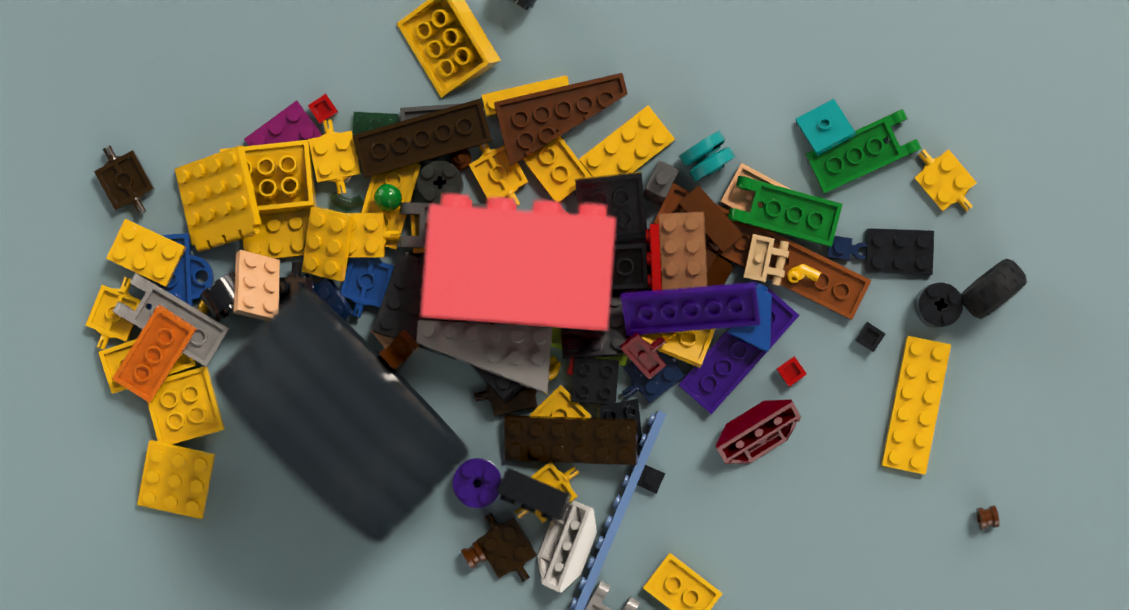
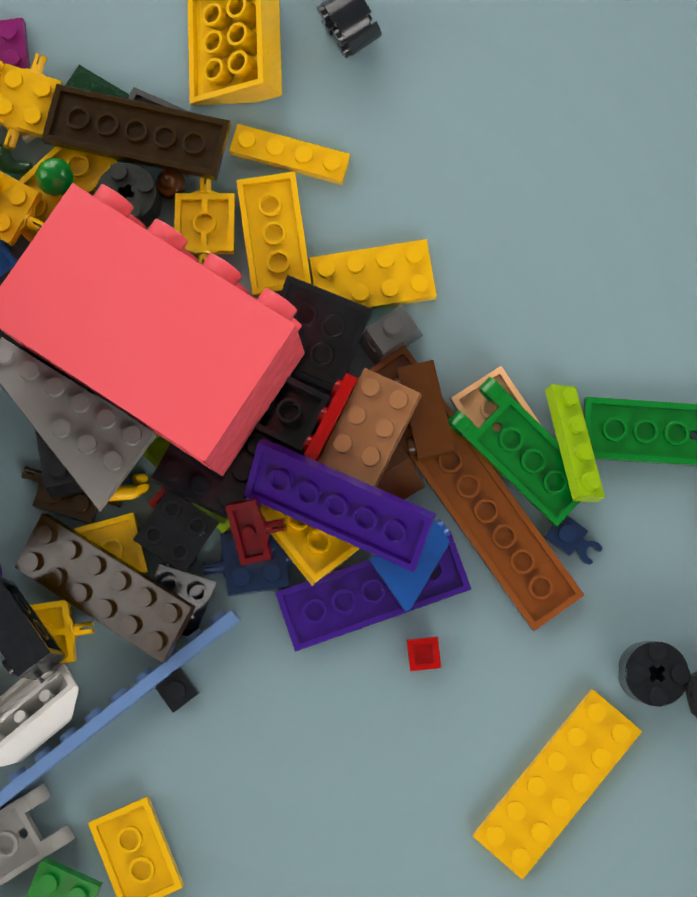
camera: 30 degrees right, 5 degrees down
(323, 108) = (46, 42): red plate -> none
(543, 116) = (294, 183): reddish brown wing -> none
(706, 154) = (463, 332): teal wheel -> none
(757, 431) = (339, 705): dark red wedge -> none
(759, 258) = (460, 490): tan plate -> none
(802, 271) = (503, 537): yellow arm -> none
(814, 188) = (574, 443): none -> lime plate
(825, 127) = (627, 378): teal plate -> none
(869, 337) = (544, 665): black plate -> none
(899, 251) = (638, 580): black plate -> none

